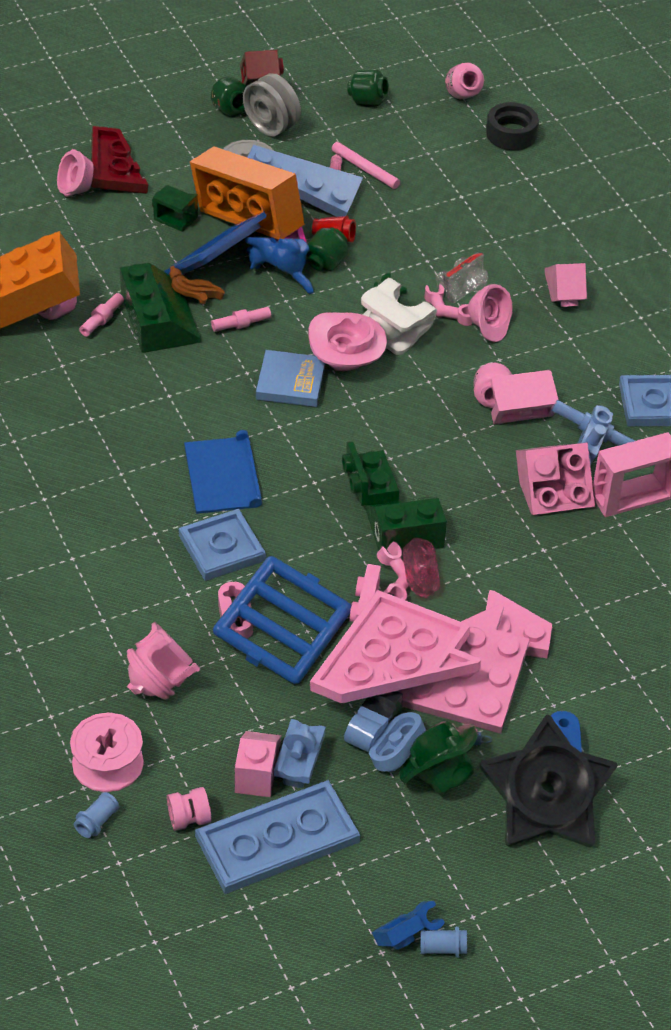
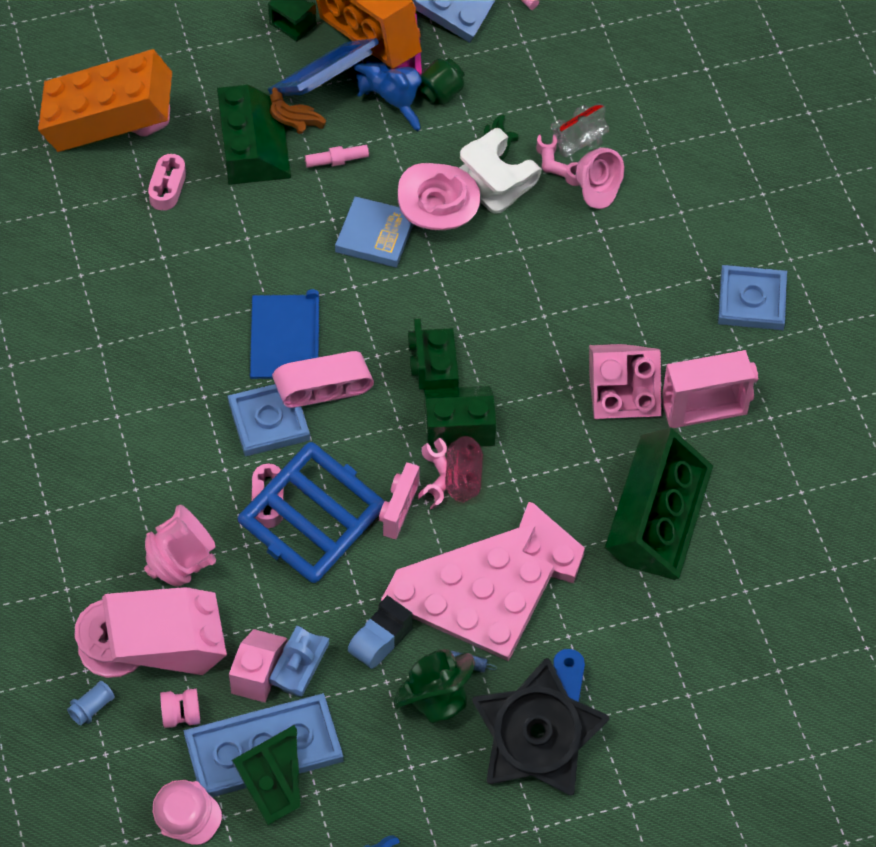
camera: 10 degrees right, 10 degrees up
(79, 354) = (161, 180): none -> bright pink beam
(101, 314) = (194, 135): bright pink bar -> none
(164, 733) = (165, 629): none -> bright pink slope
(213, 905) = (186, 812): none -> bright pink hat
(269, 503) = (322, 379): none -> bright pink beam
(294, 858) = (272, 775): none -> dark green wing
(342, 223) = (462, 54): red cone -> none
(394, 649) = (410, 564): bright pink wing -> none
(395, 742) = (398, 659): medium blue plate -> none
(482, 385) = (583, 264): bright pink head -> none
(523, 396) = (610, 282): bright pink panel -> none
(567, 283) = (689, 148): bright pink slope -> none
(594, 427) = (679, 328): medium blue piece -> none
(613, 579) = (659, 504): none -> dark green slope

